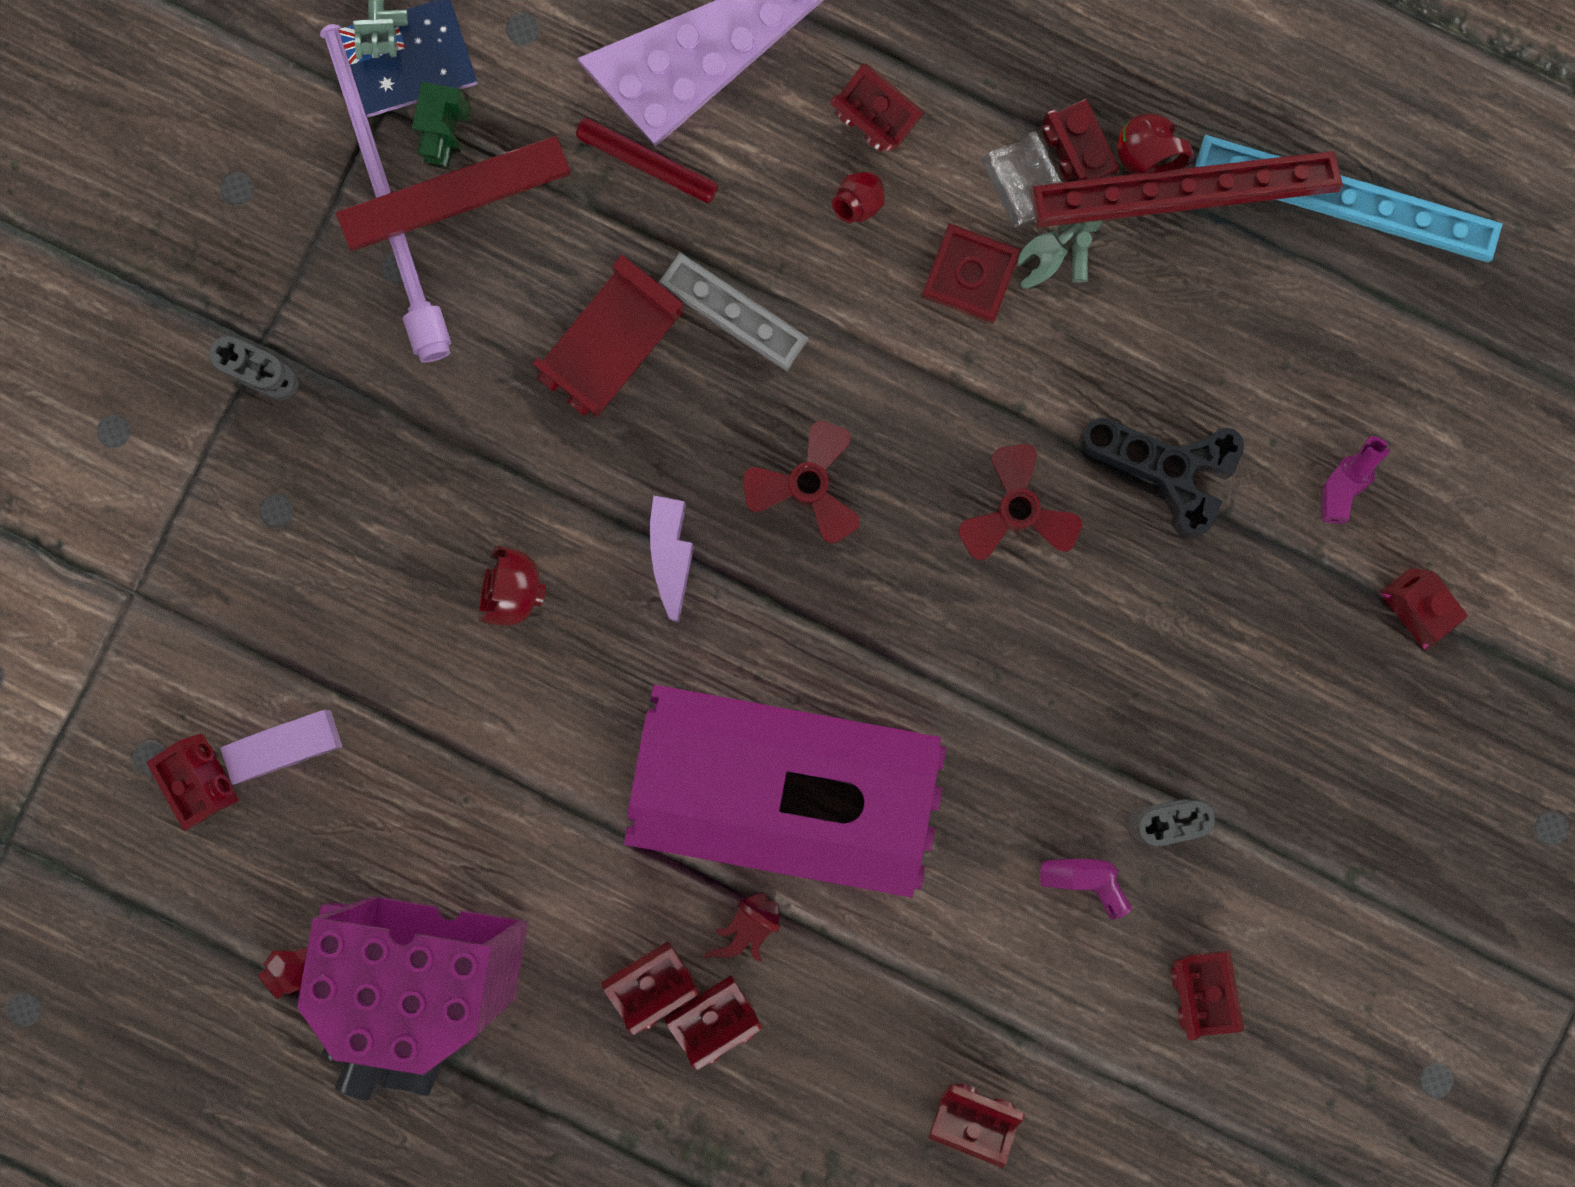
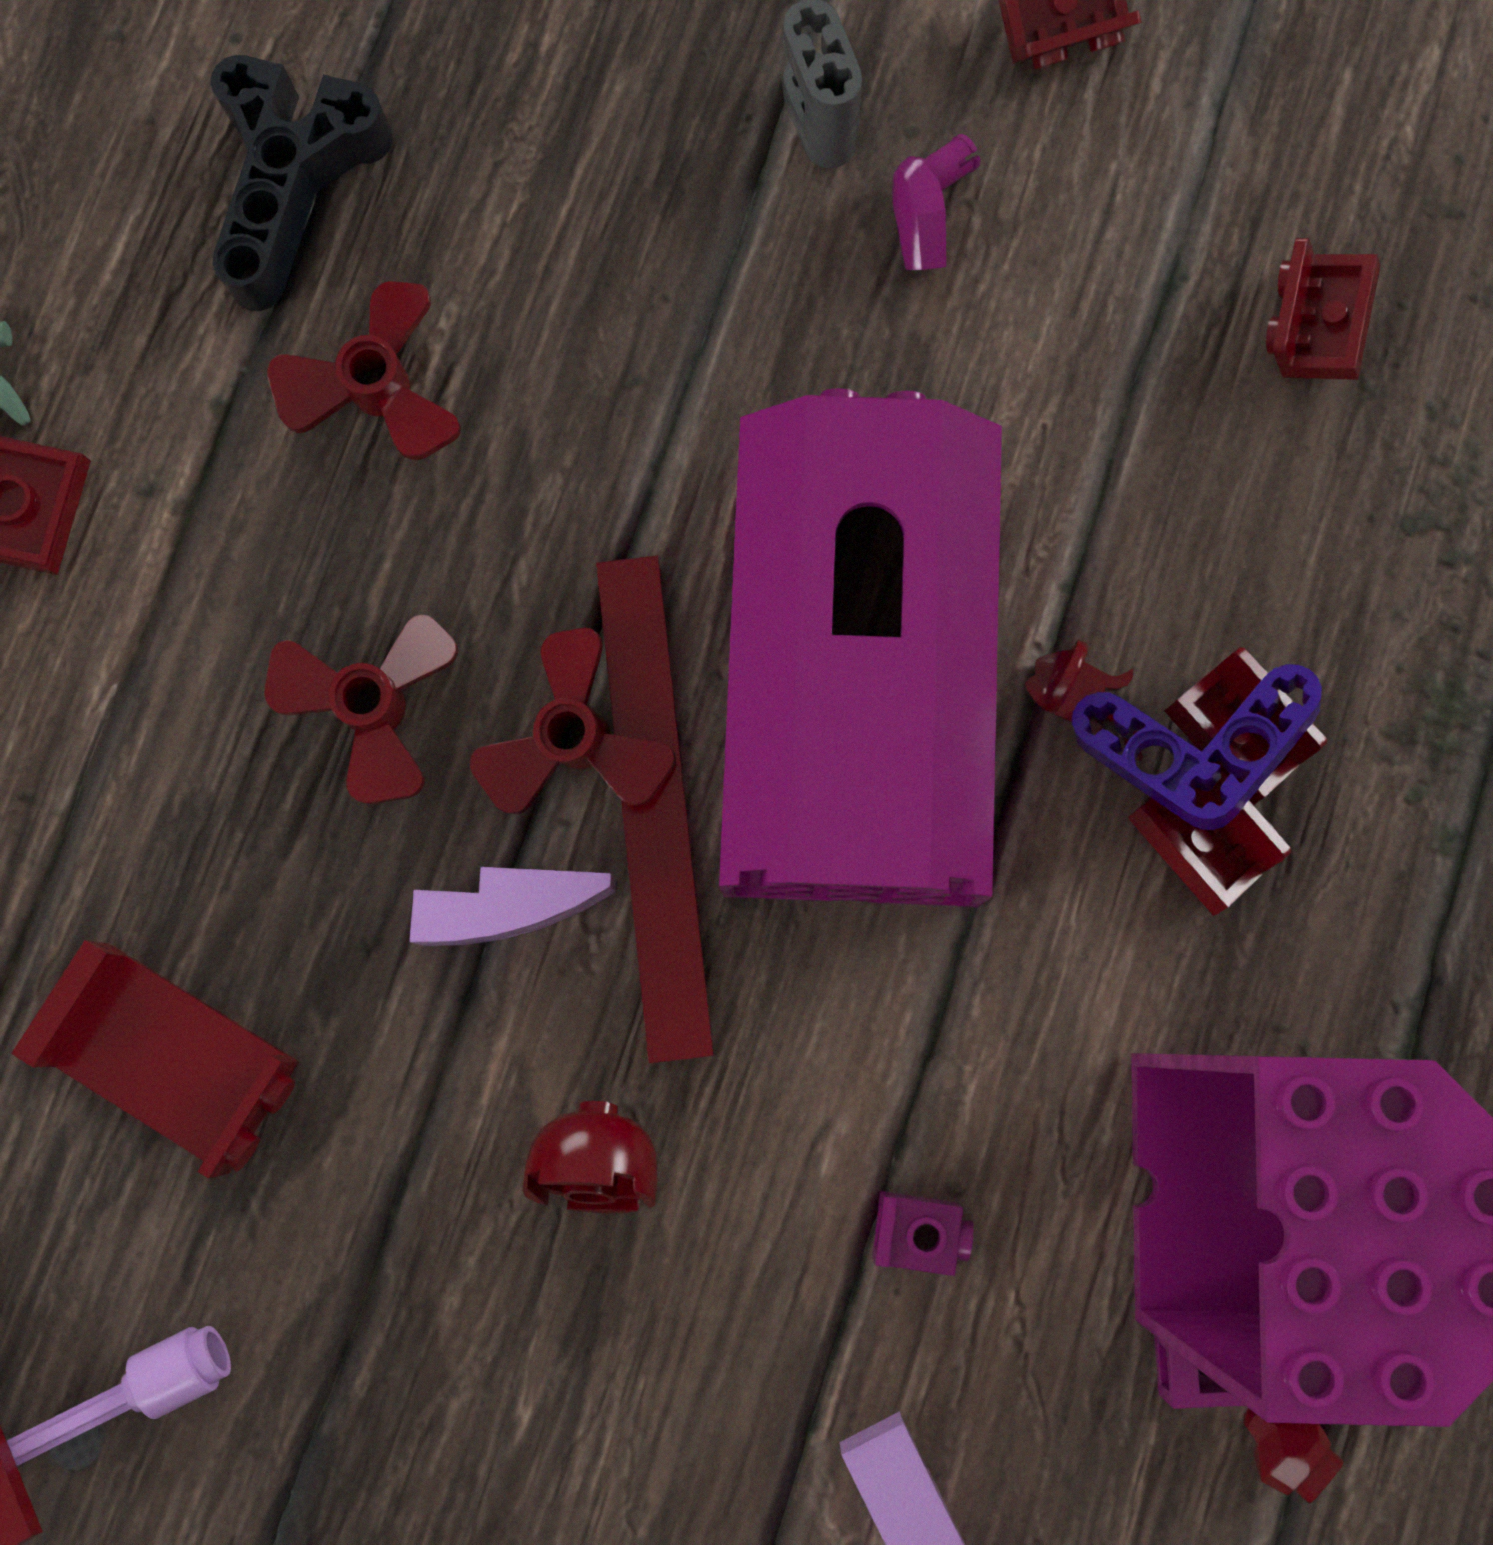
camera: 90 degrees left, 5 degrees down
(453, 767) = (895, 1227): none -> magenta brick
(687, 983) = (1195, 767): none -> dark purple beam
(719, 651) = (659, 830): none -> dark red tile
(733, 312) = (103, 859): light grey tile -> none
(744, 639) = (520, 768): none -> dark red piece

